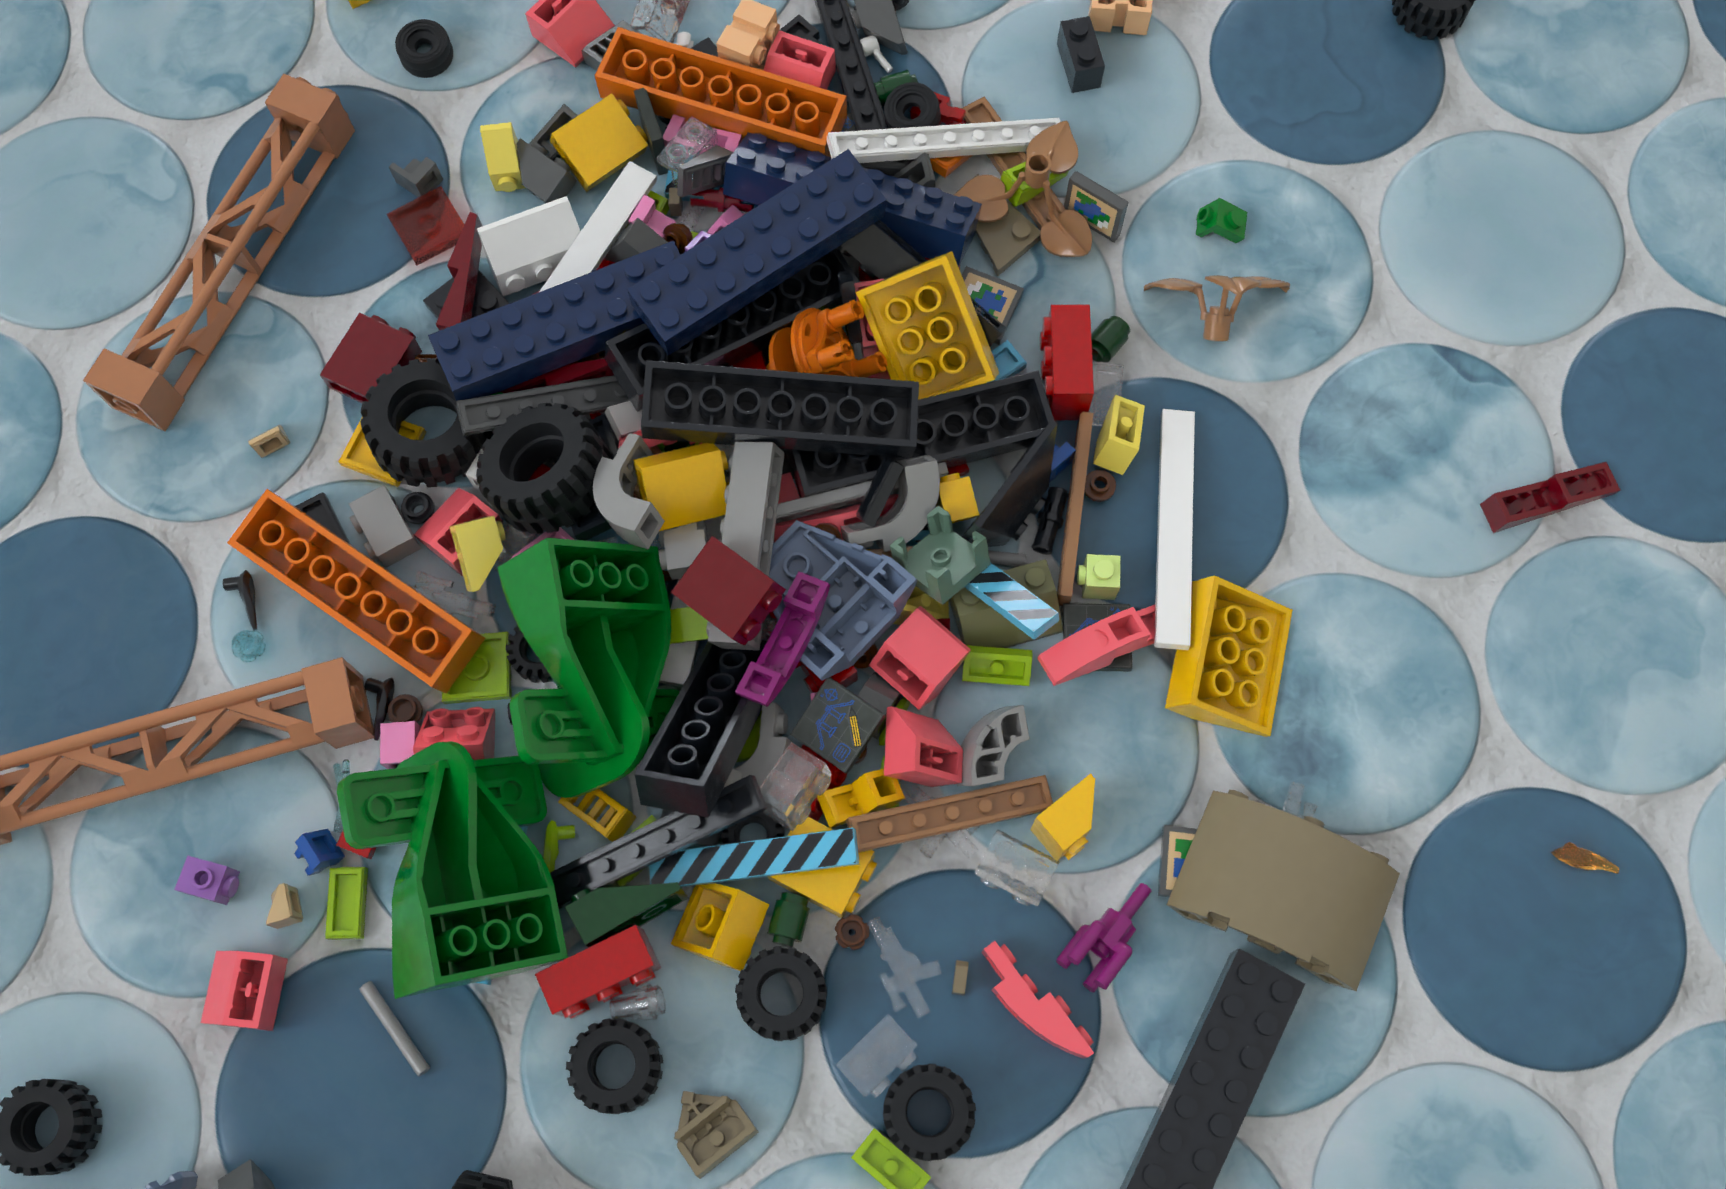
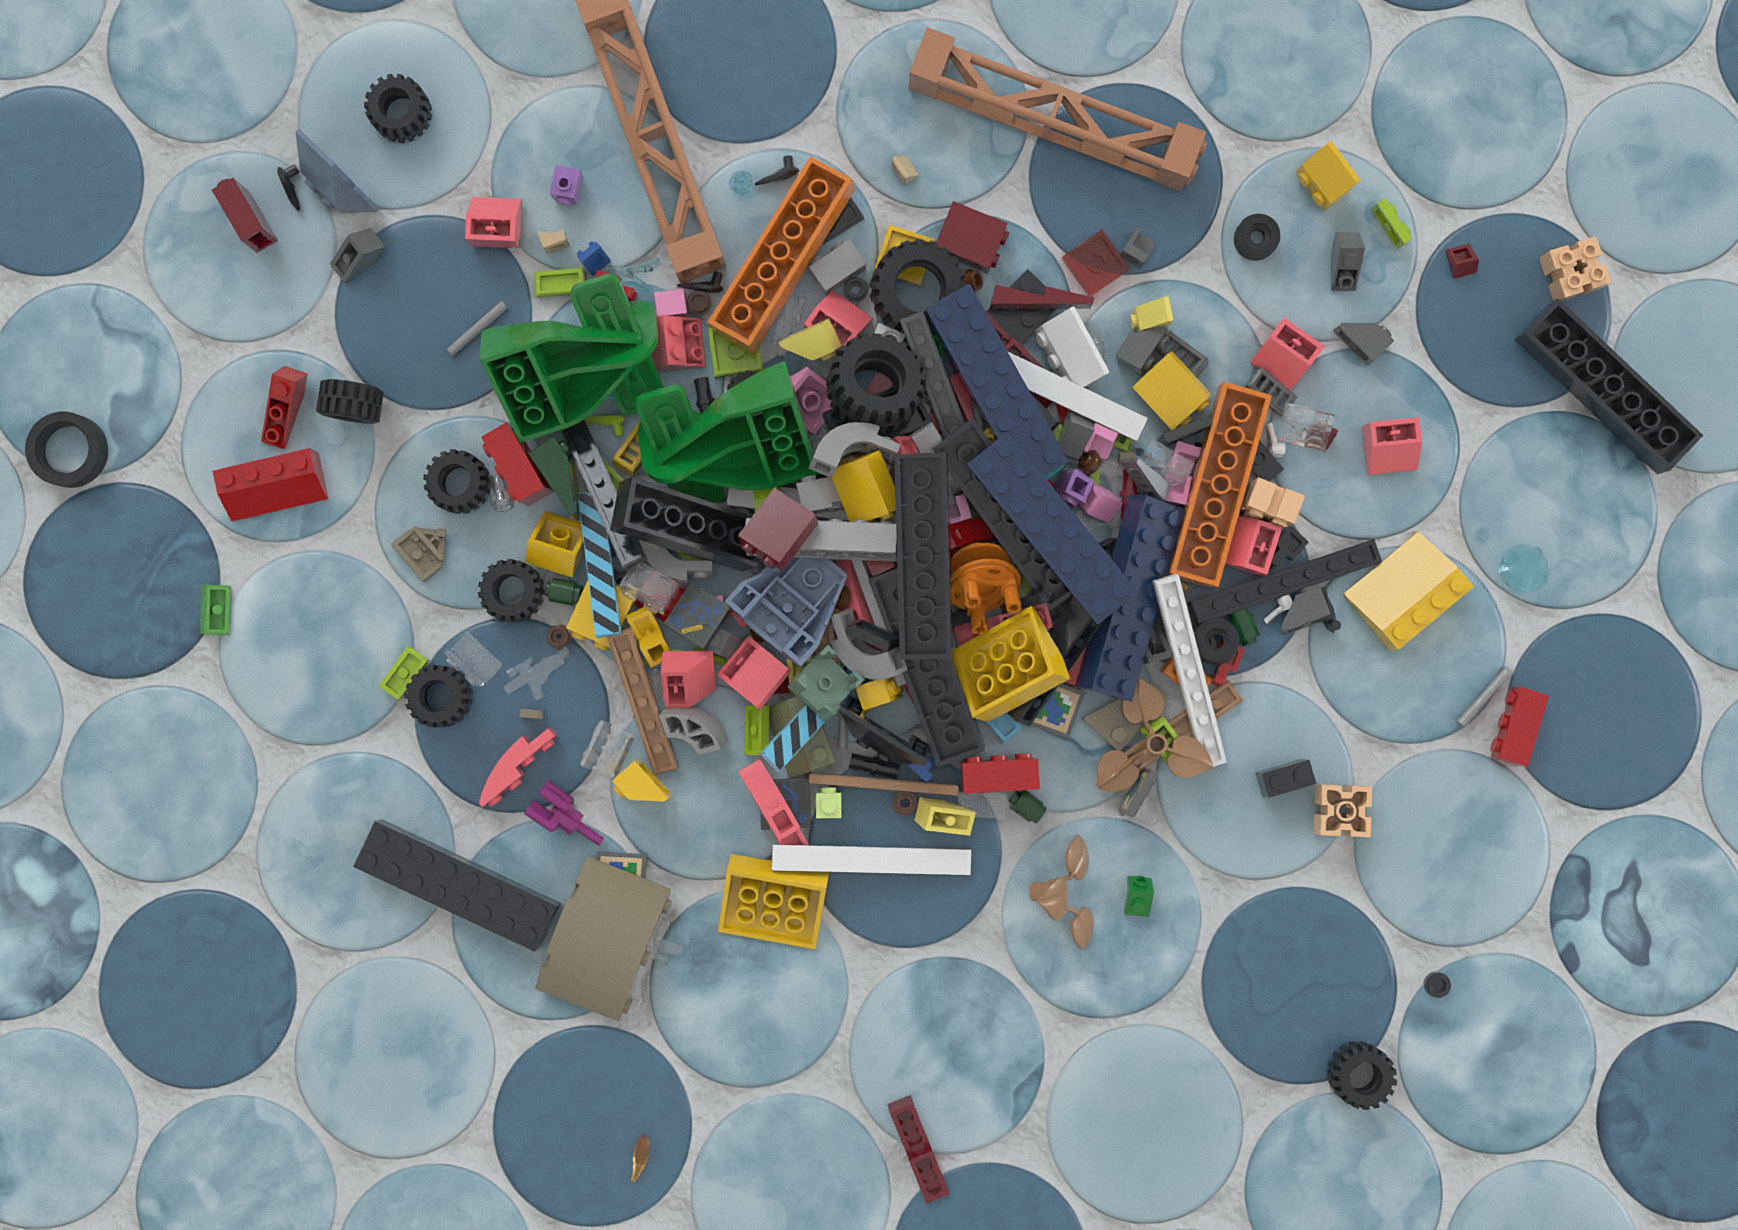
camera: 80 degrees right, 15 degrees up
(787, 641) = (748, 574): magenta slope -> none

